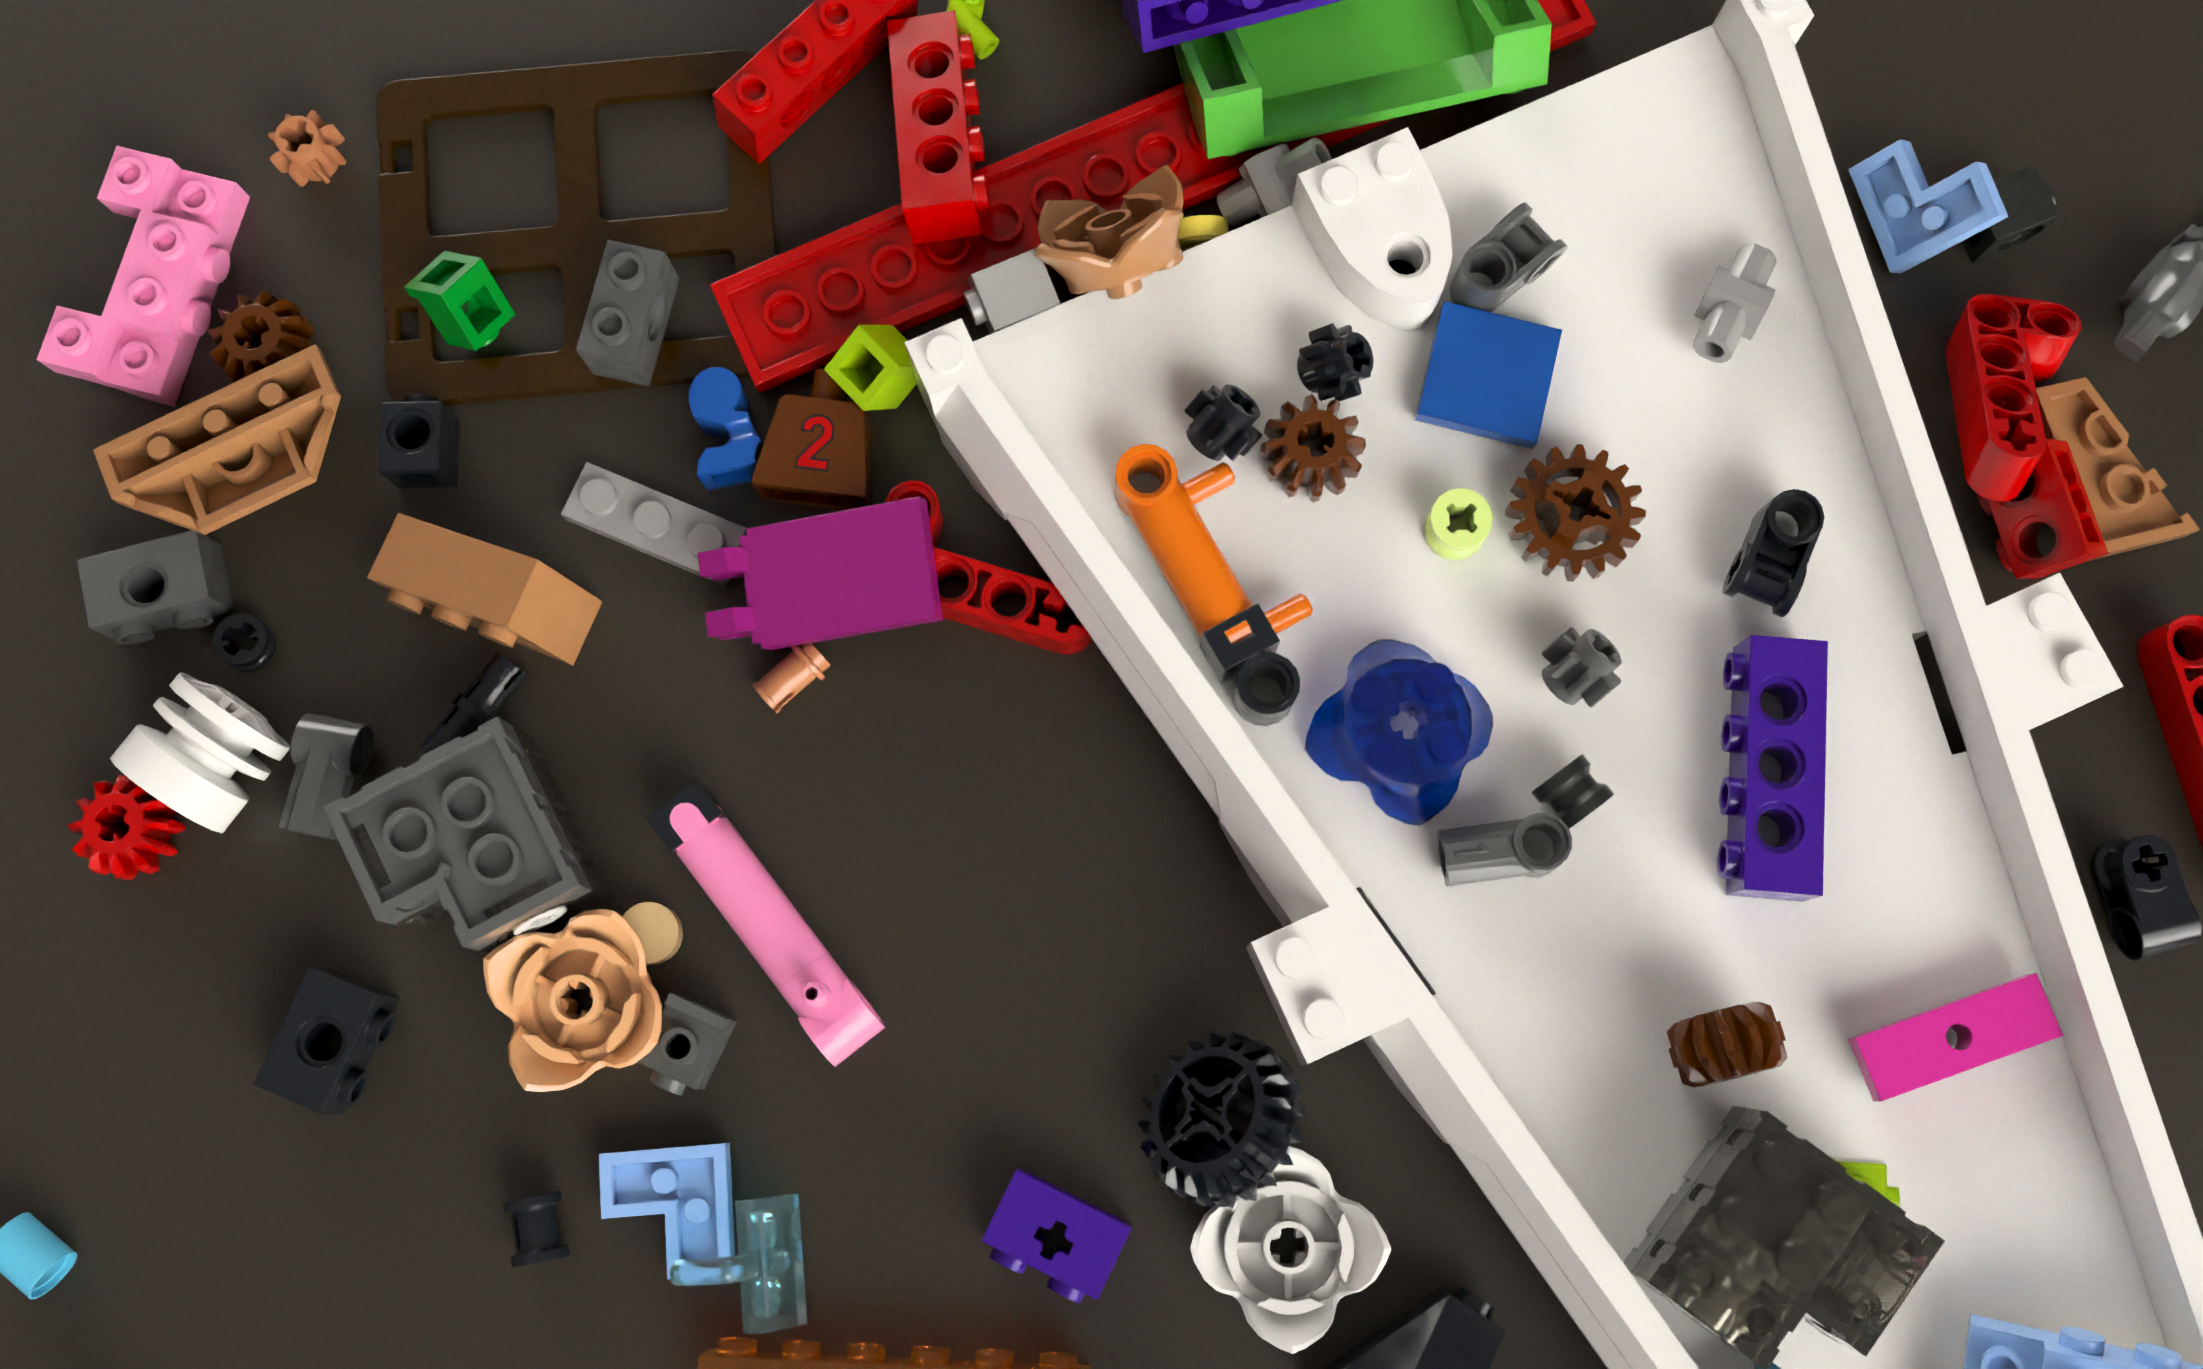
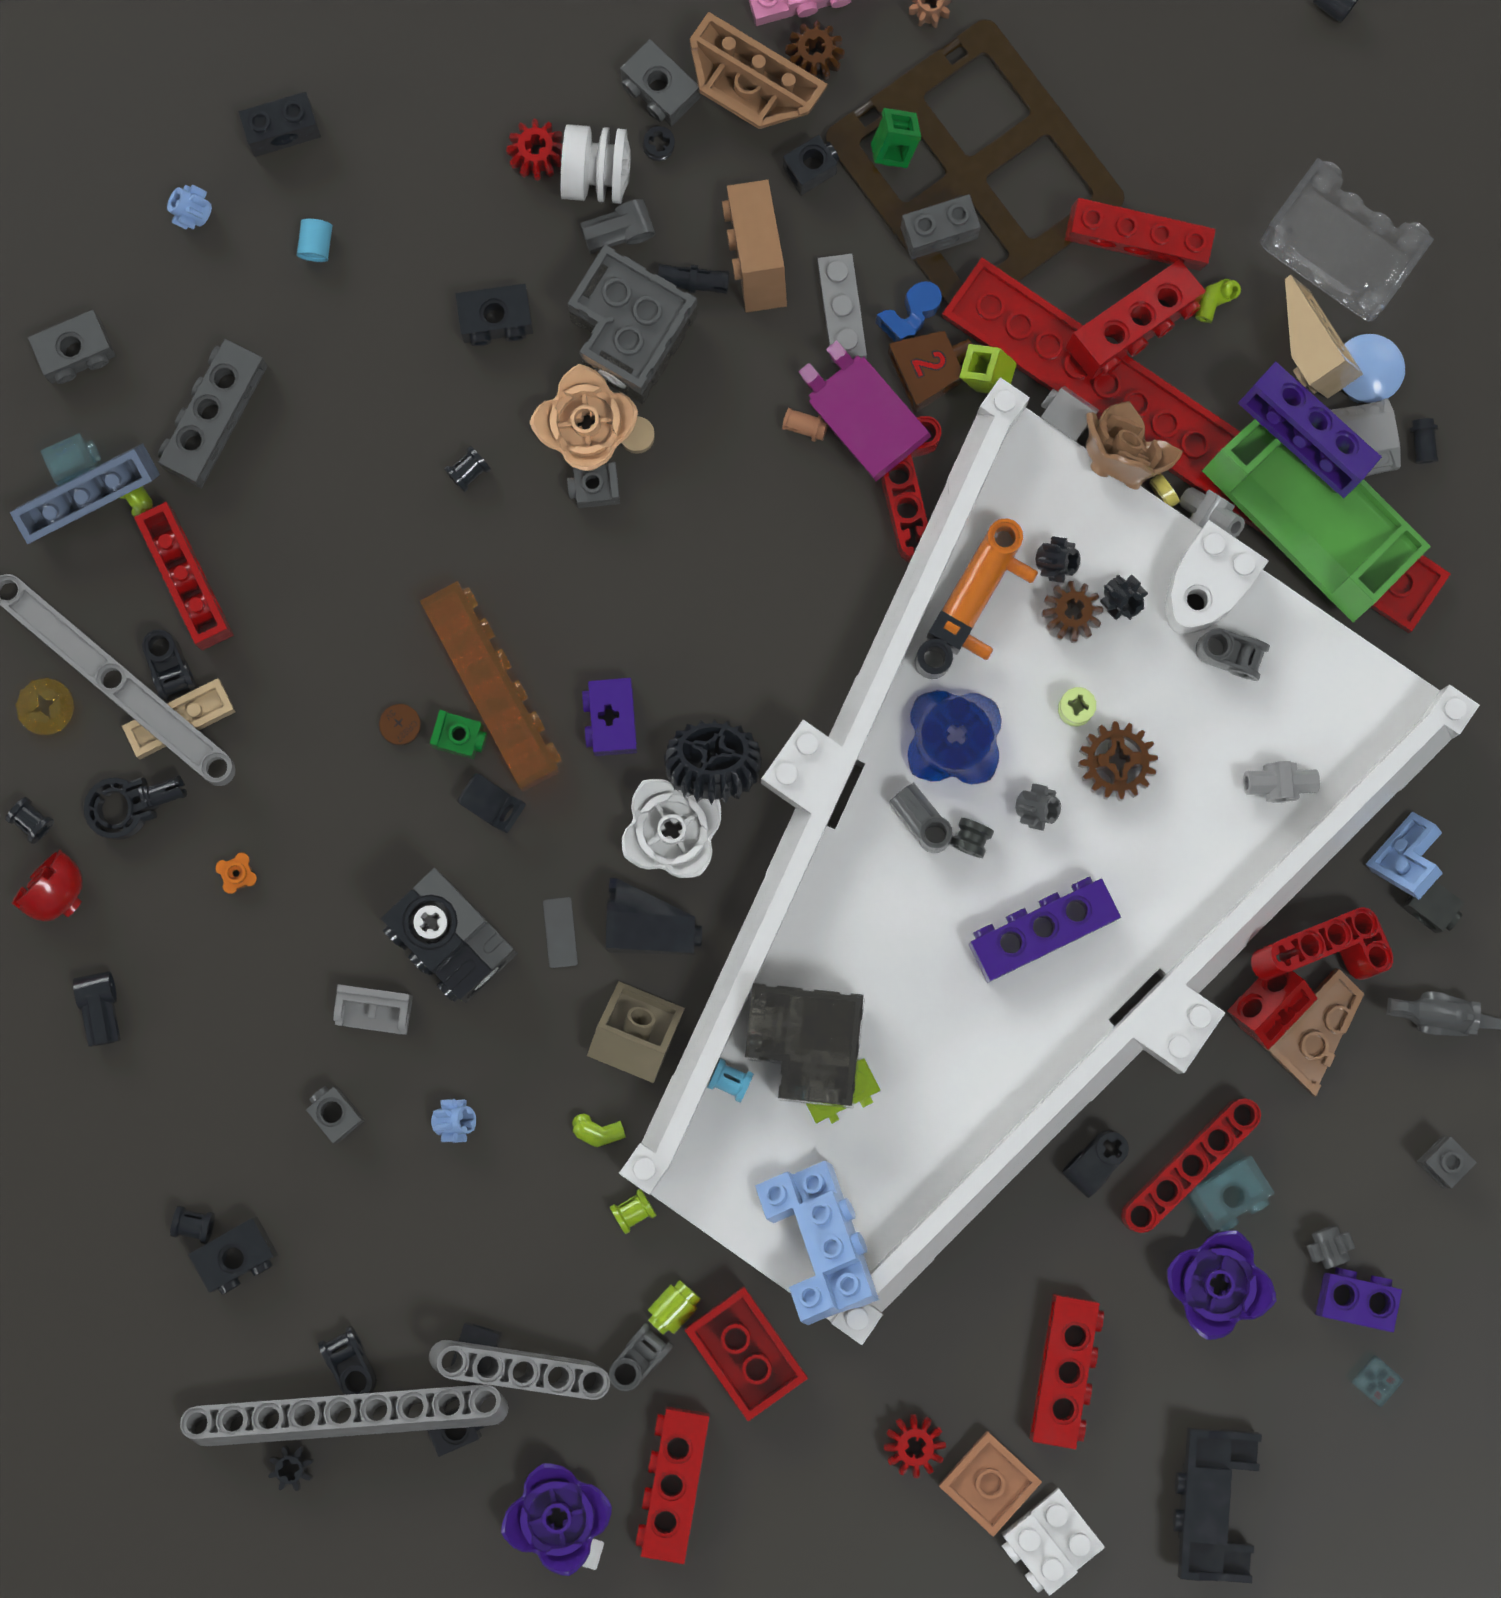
camera: 55 degrees right, 5 degrees up
(683, 1183) = (528, 529): light blue plate -> none
(766, 922) = (676, 487): bright pink piece -> none
(766, 1264) = (516, 587): clear light blue plate -> none
(1488, 375) = (1167, 679): blue tile -> none
(1727, 1044) = (890, 975): reddish brown gear -> none
(1774, 564) = (1154, 872): black piece -> none
(1986, 1027) = (979, 1101): dark pink tile -> none

